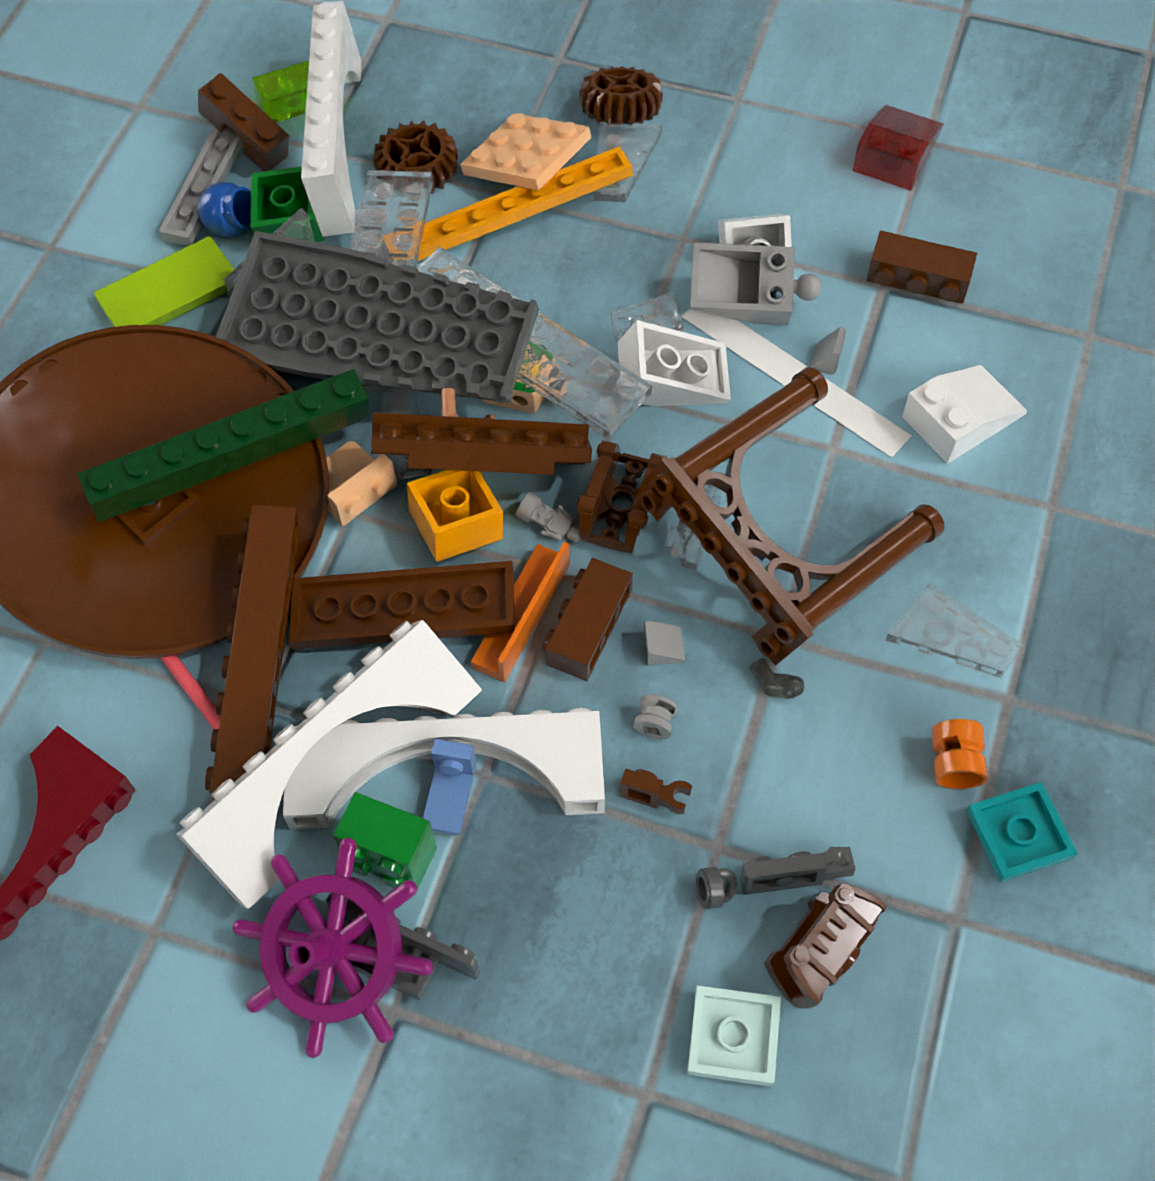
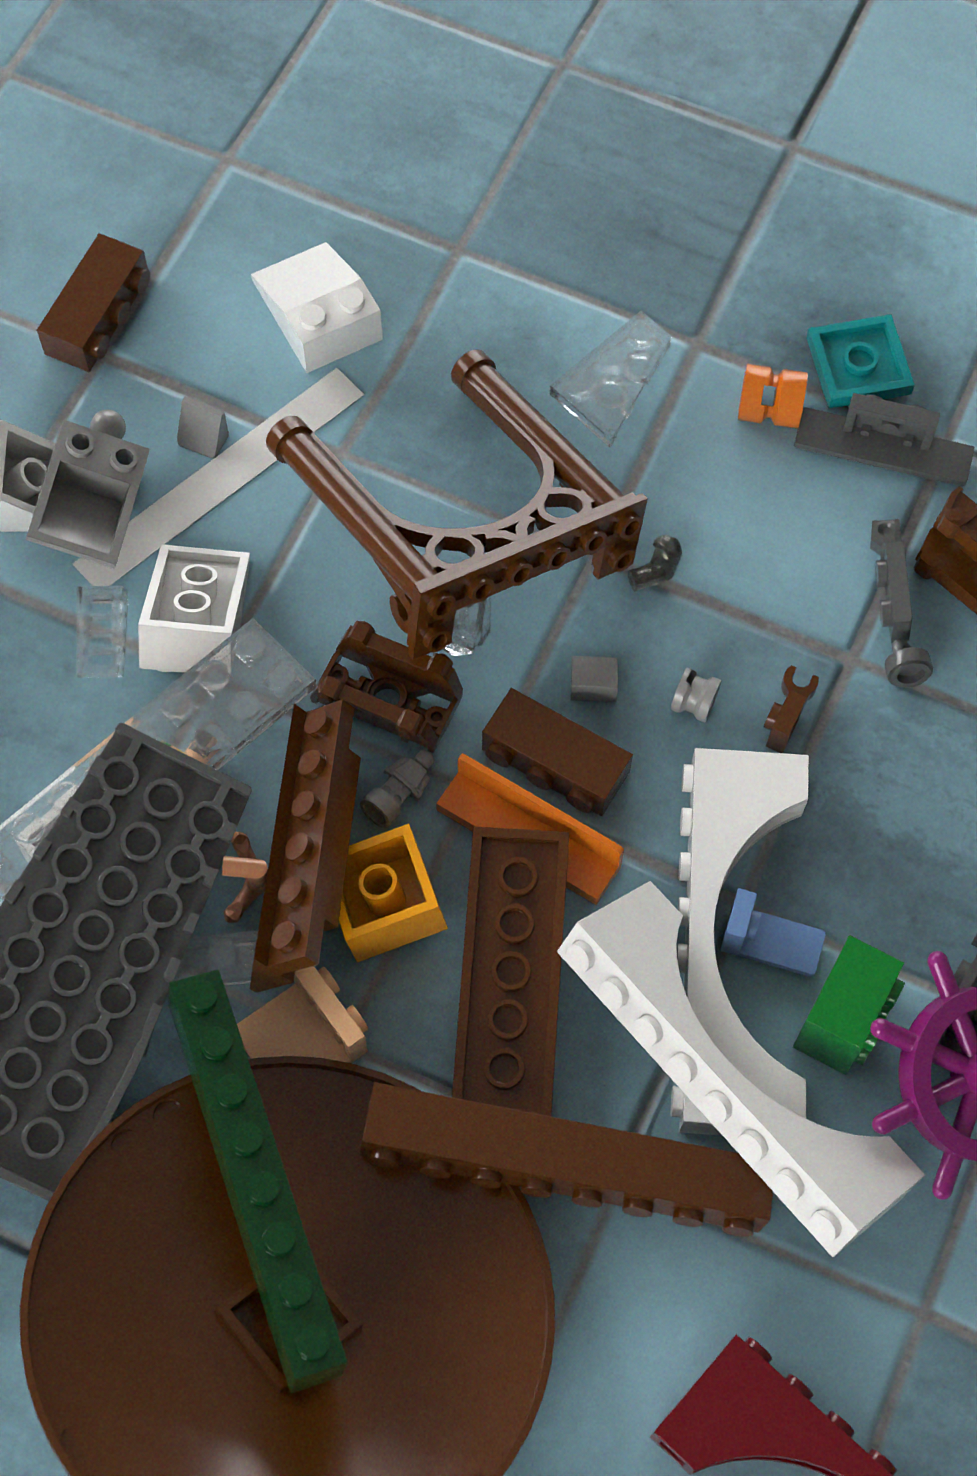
camera: 85 degrees left, 5 degrees up
(192, 689) = (608, 1251): coral bar -> none
(939, 860) = (886, 437): none -> dark grey bracket

